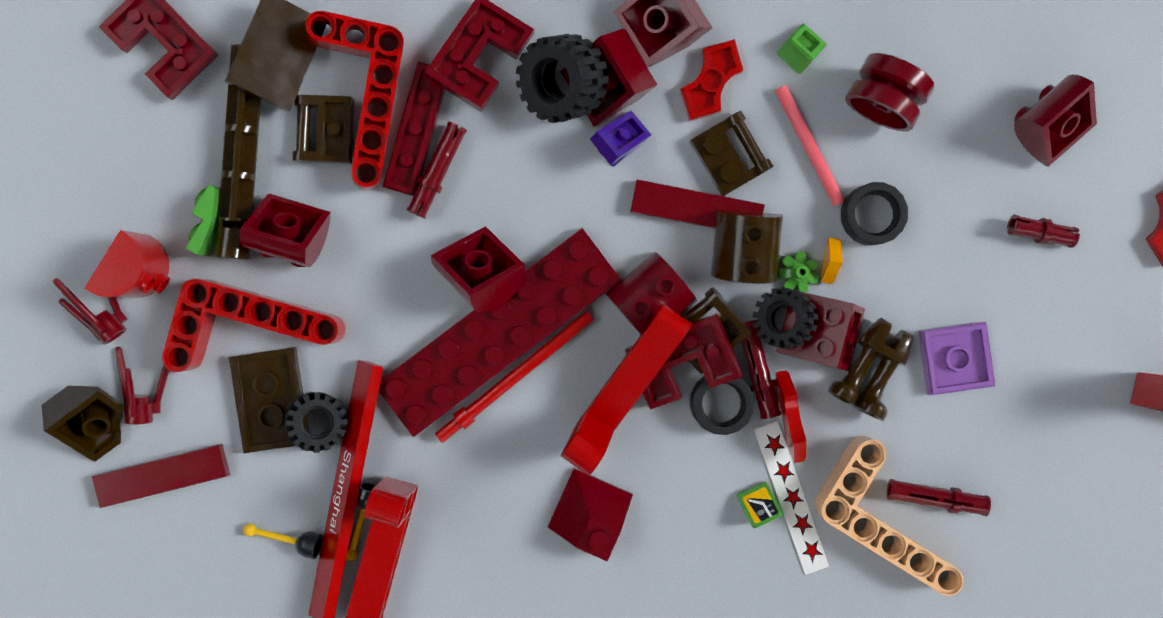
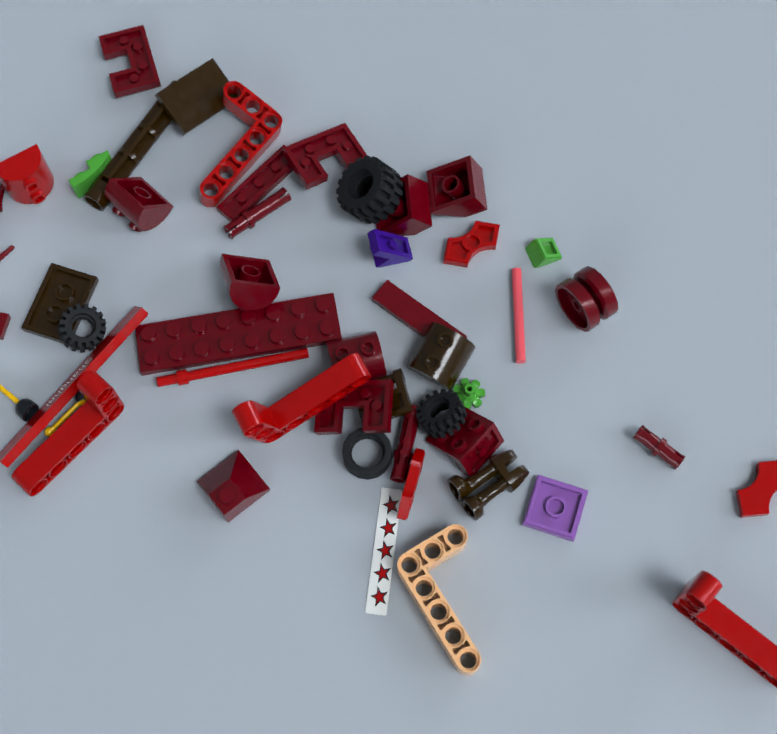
camera: 30 degrees right, 20 degrees down
(246, 312) = (81, 239): red beam -> none
(333, 129) = (205, 158): dark brown plate -> none
(721, 158) = (453, 298): dark brown plate -> none
(759, 505) = (357, 540): slope -> none
(831, 261) = (492, 398): light orange tile -> none
(898, 206) = (548, 360): black tyre -> none
(952, 500) = (519, 619): dark red pin -> none
(1057, 119) = (700, 374): dark red brick -> none

